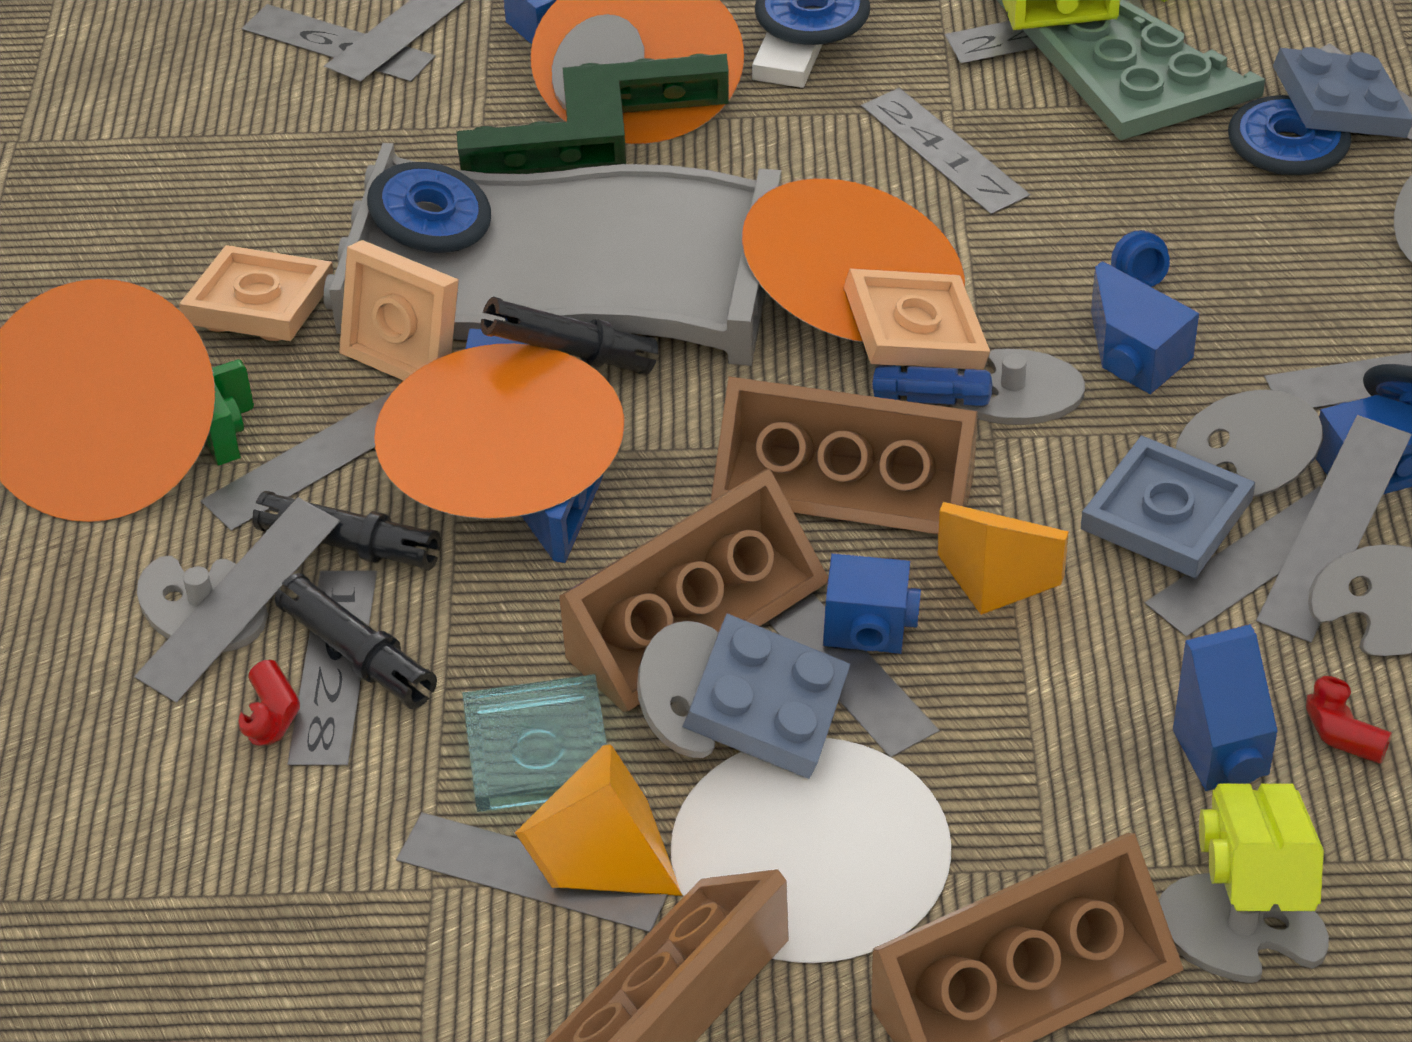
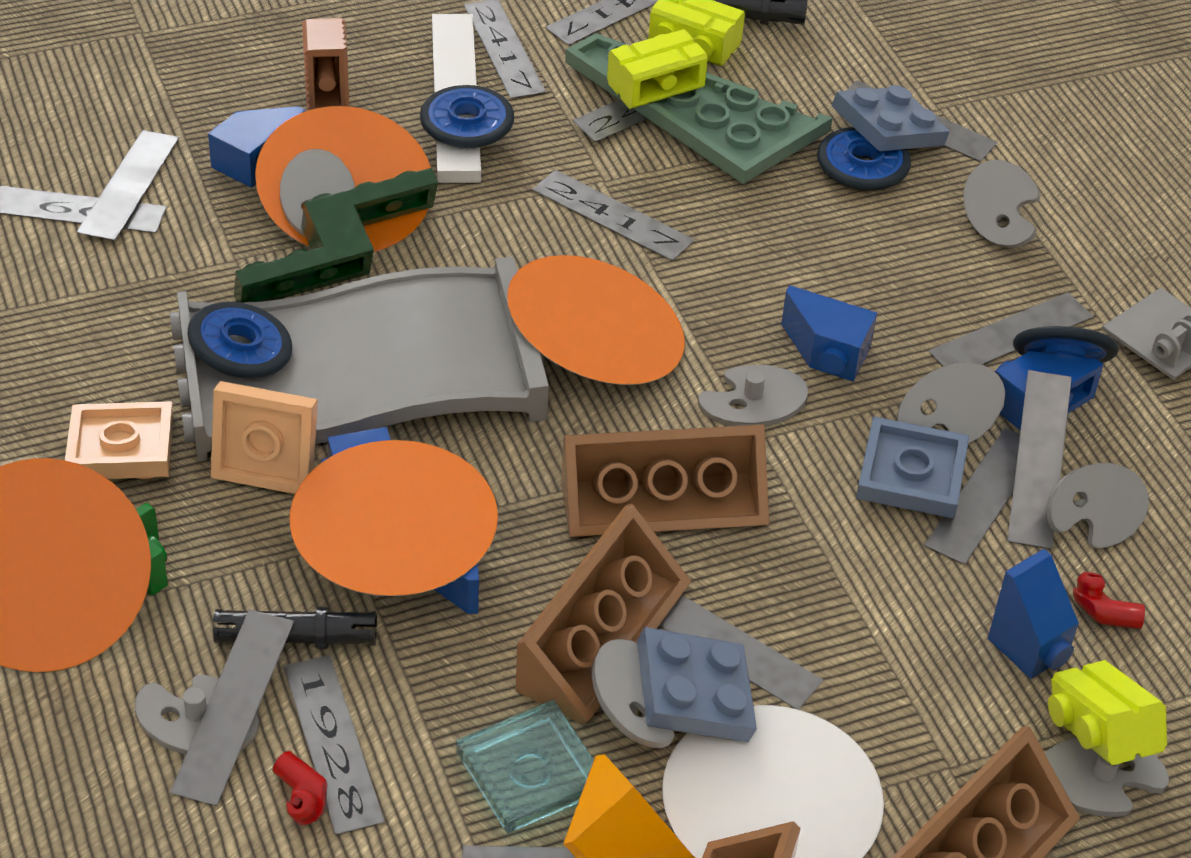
camera: 25 degrees left, 0 degrees up
(298, 466) = (227, 575): flat silver sticker -> none
(372, 653) = (369, 726): black pin -> none
(592, 342) = (427, 427): black pin -> none
(869, 603) = (736, 593): blue brick -> none
(916, 319) = (666, 358): light nougat plate -> none
(933, 385) = (699, 408): blue axle -> none
(999, 556) = (810, 533): light orange slope -> none
(1142, 257) = (807, 274): blue plate -> none

